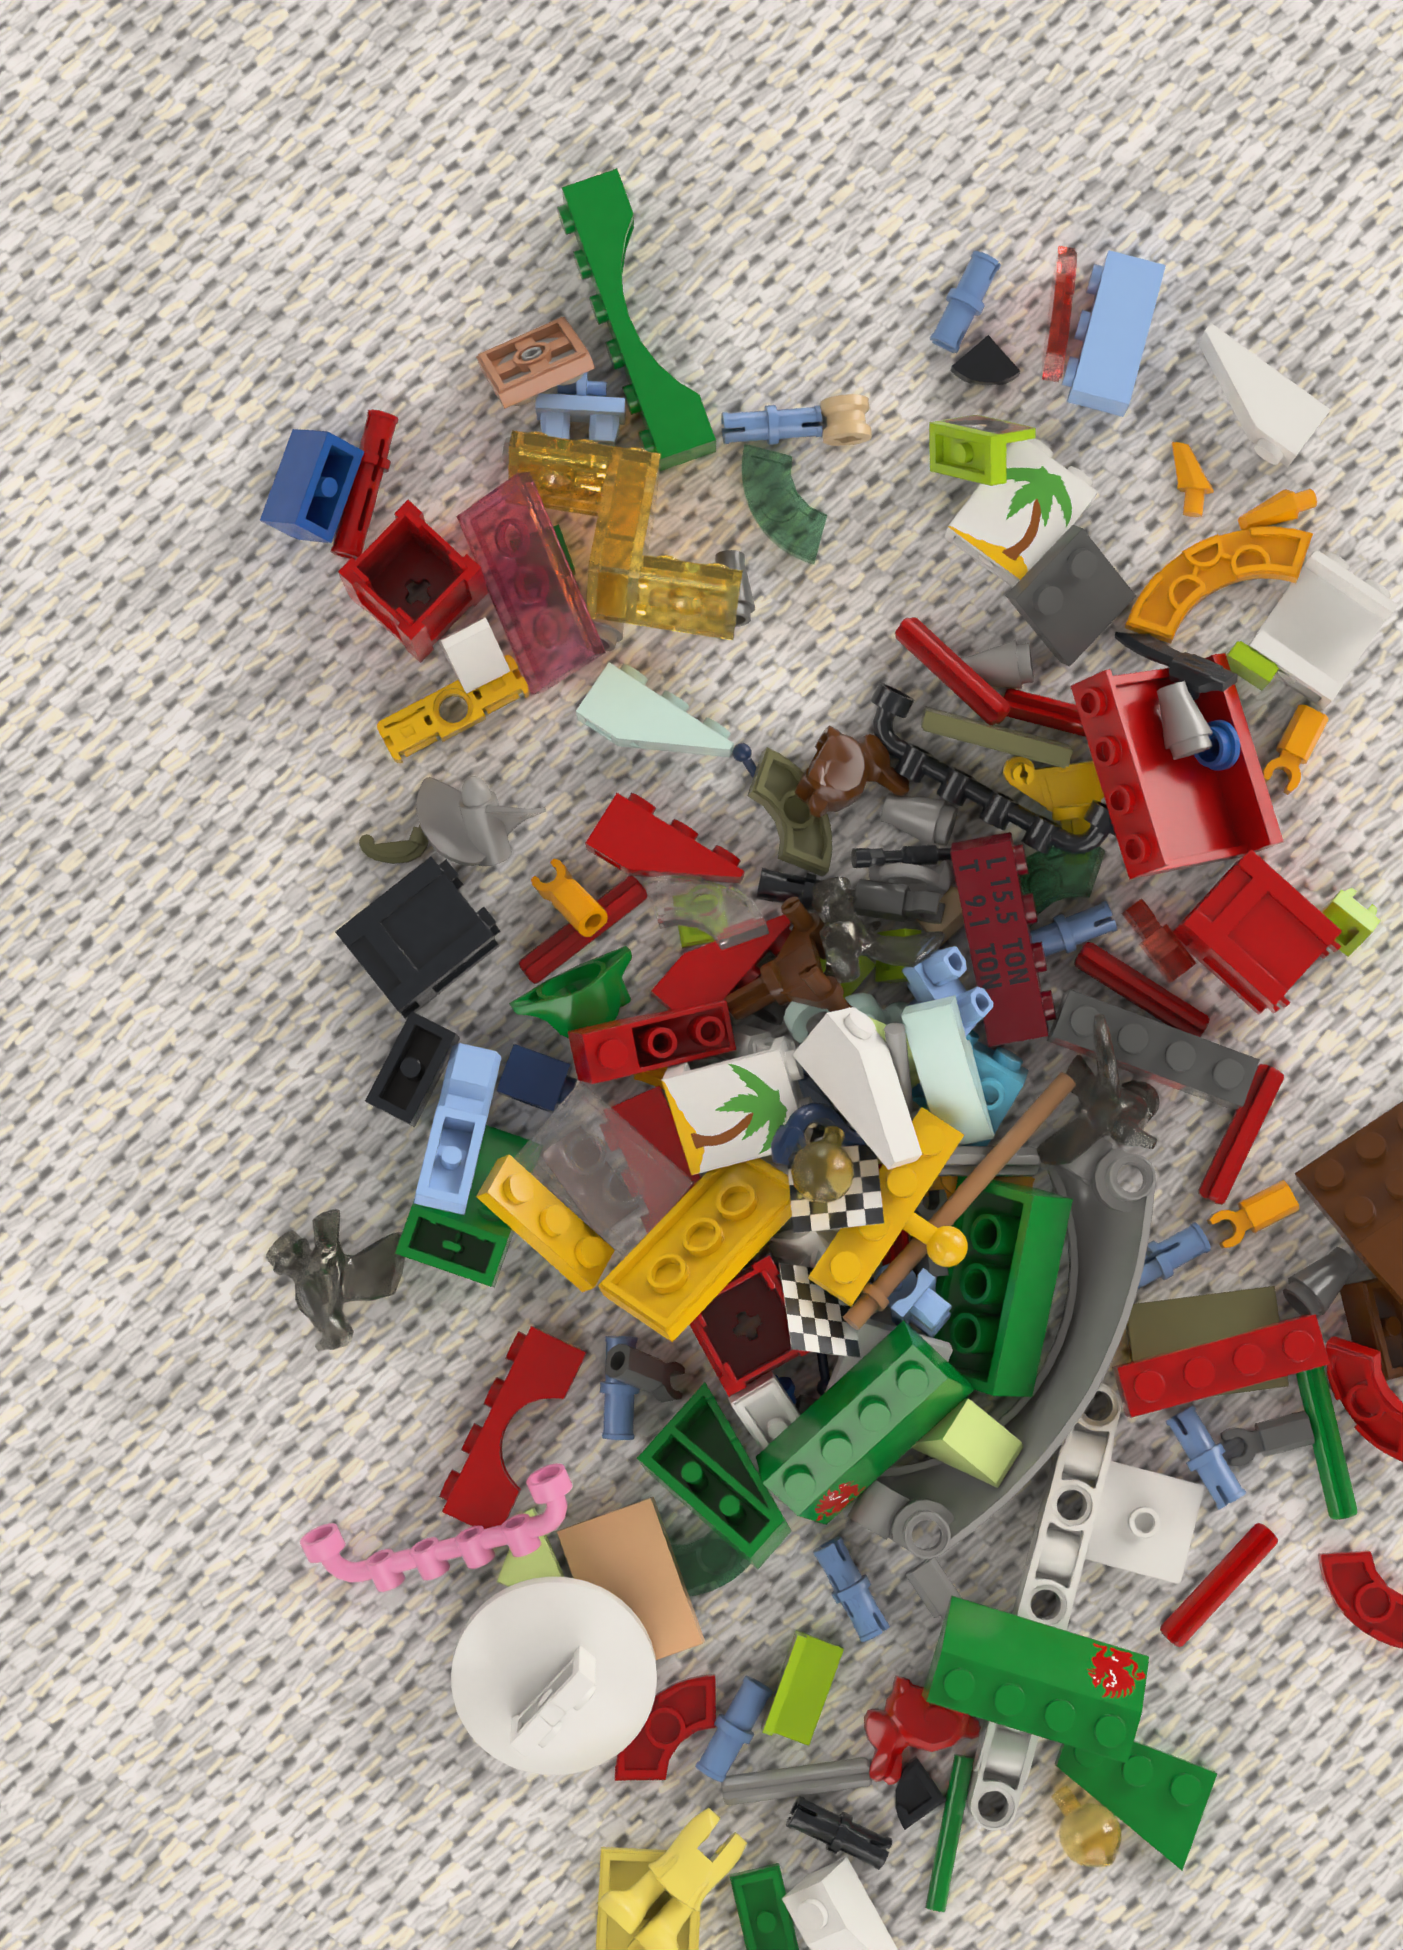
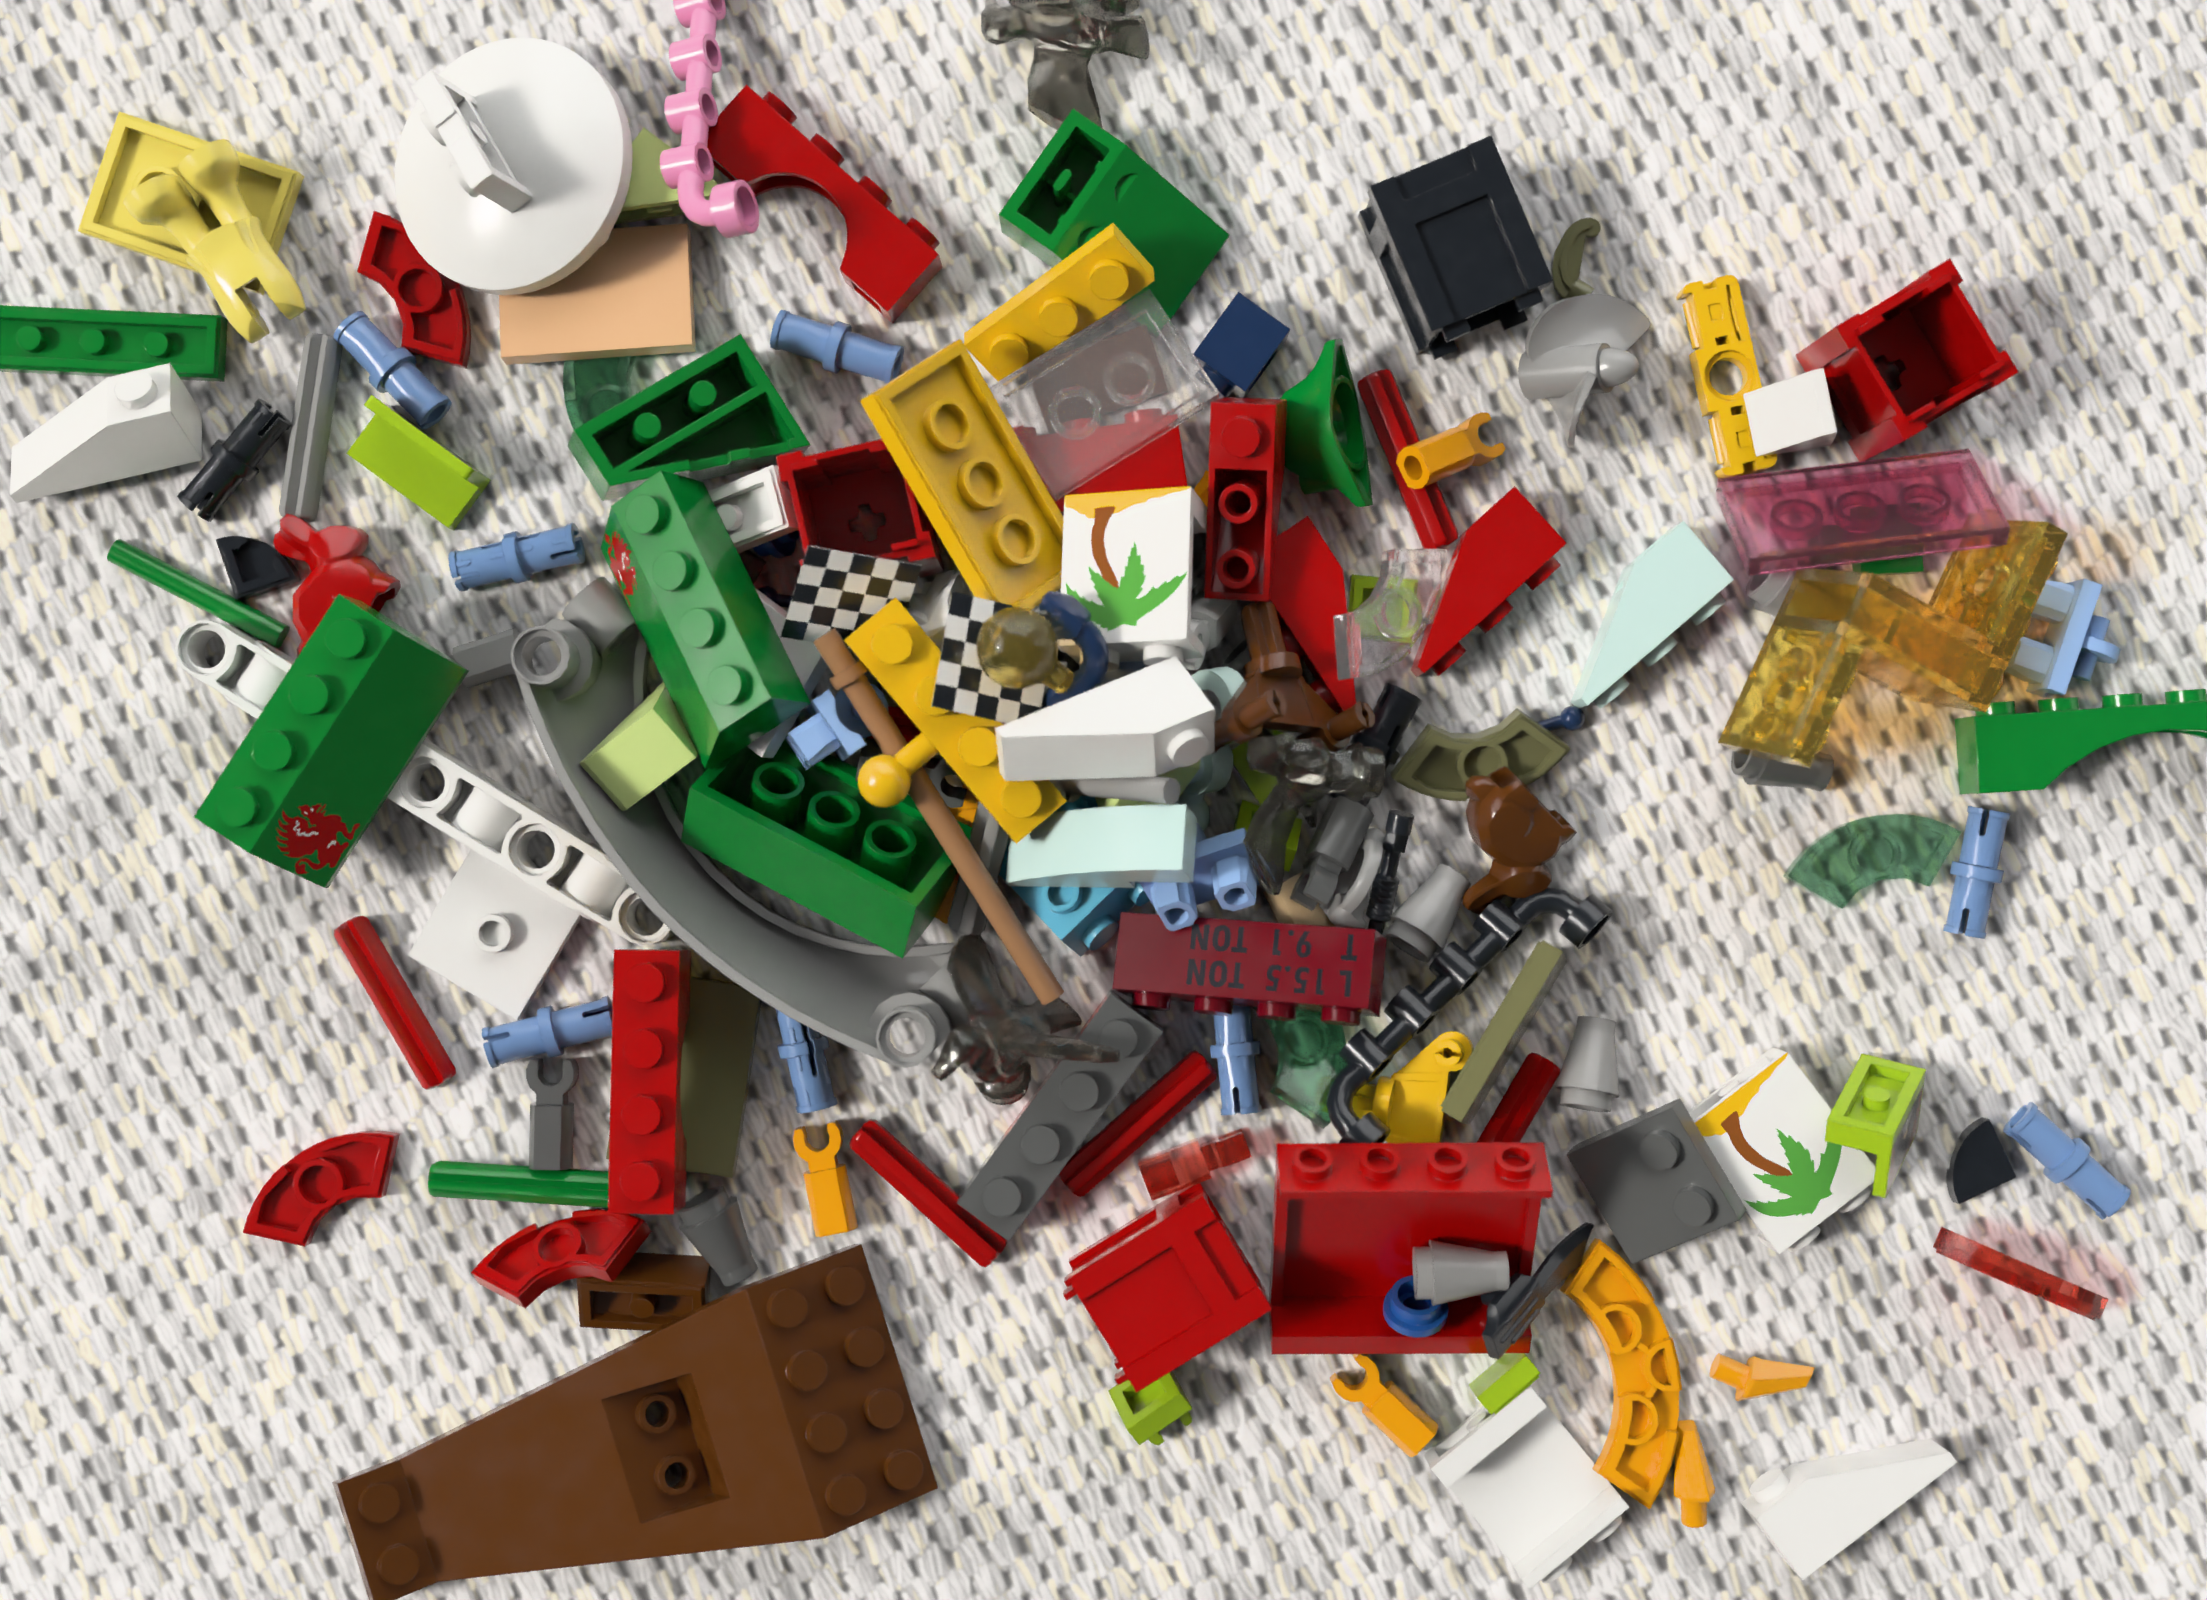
camera: 110 degrees right, 5 degrees up
(312, 485) = (2060, 275): blue brick -> none
(363, 493) = (2063, 357): red pin -> none
(412, 1069) = (1293, 198): black brick -> none
(458, 1128) = (1200, 224): light blue plate -> none
(535, 363) = (2140, 595): nougat piece -> none
(643, 1371) = (845, 376): dark grey bar -> none
(845, 420) = (1957, 966): tan wheel -> none
(952, 671) = (1601, 1005): red axle -> none
(1088, 1831) = (146, 757): clear yellow piece -> none
(1113, 332) = (1976, 1335): light blue brick -> none
(1151, 1794) = (164, 854): green wing -> none

